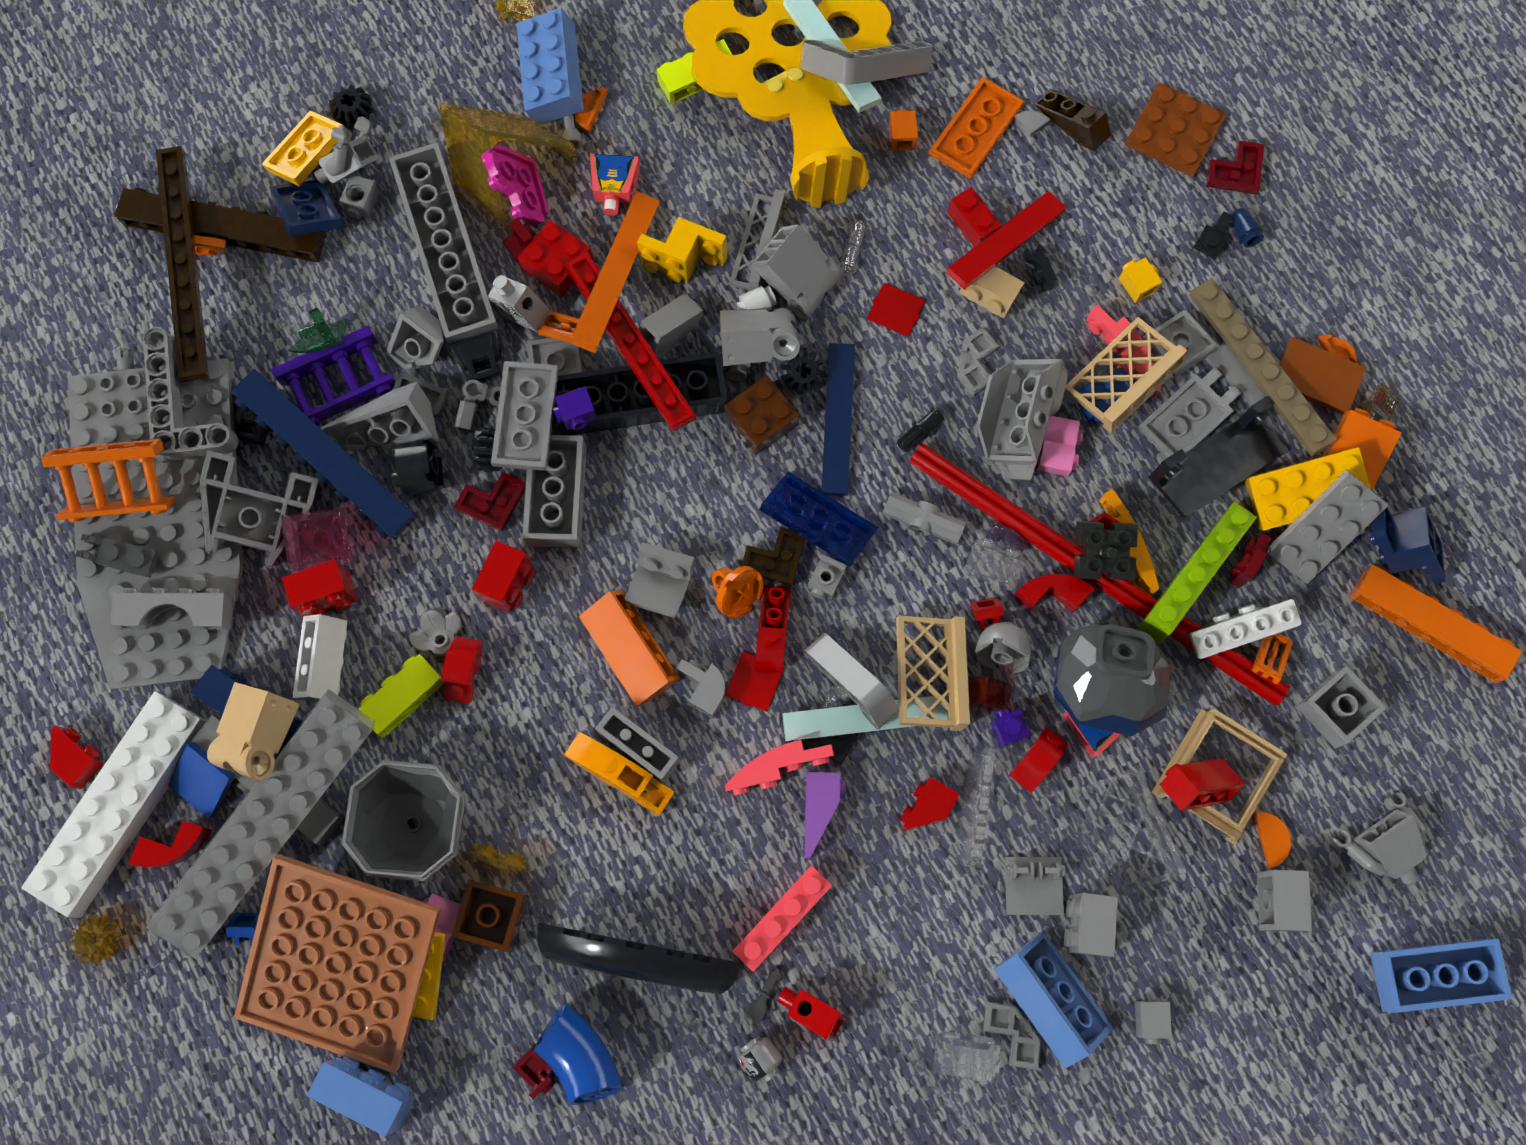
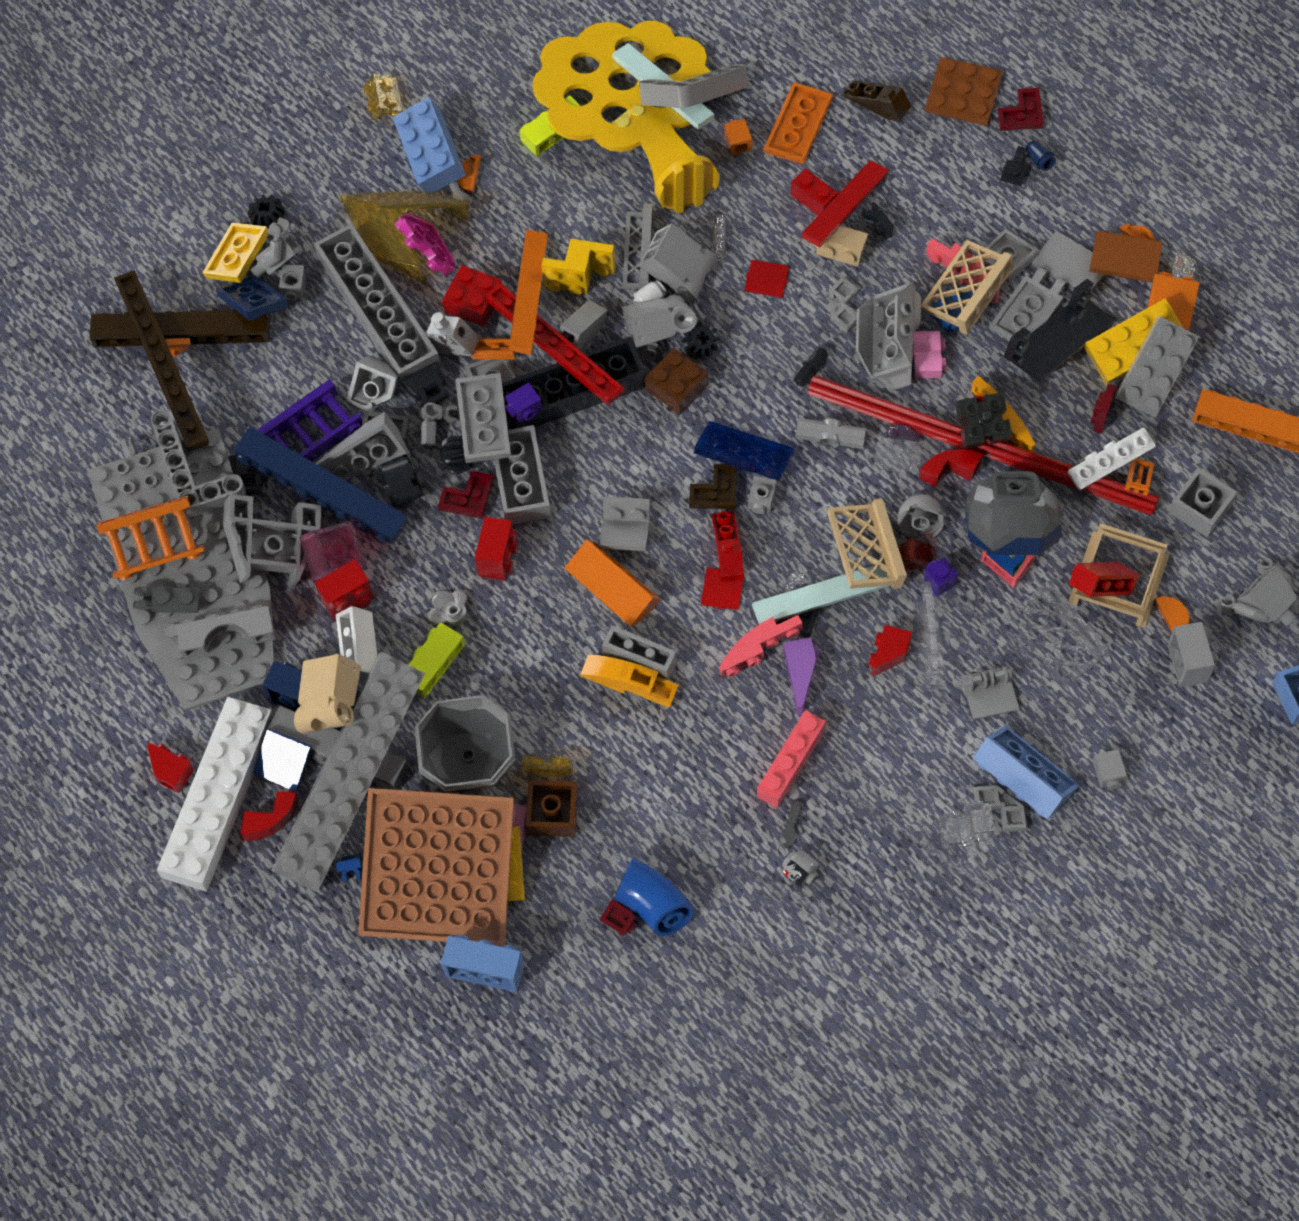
camera: 10 degrees left, 10 degrees down
(105, 939) = (224, 909): clear yellow gear -> none
(319, 335) = (289, 395): clear green shield -> none
(459, 669) = (478, 630): red brick -> none
(519, 239) = (439, 285): dark red bracket -> none
(614, 180) = (505, 225): torso -> none
(636, 960) = (681, 808): black brick -> none
(710, 689) = (686, 596): light grey brick -> none
(737, 590) = (691, 518): orange tile -> none
(823, 1018) = (842, 822): red torso -> none
(838, 419) = (740, 373): dark blue tile -> none
(853, 680) = (804, 563): light grey beam -> none
(986, 609) = (898, 492): red tile -> none
(1031, 121) = (843, 109): light grey tile -> none
(1039, 760) = (969, 595): red brick -> none
(1091, 925) = (1042, 706): light grey brick -> none
(1140, 279) = (962, 212): yellow brick -> none
(1197, 573) = (1063, 423): lime brick -> none
(1262, 367) = (1077, 258): dark tan plate -> none
(1409, 542) = (1226, 365): dark blue bracket -> none

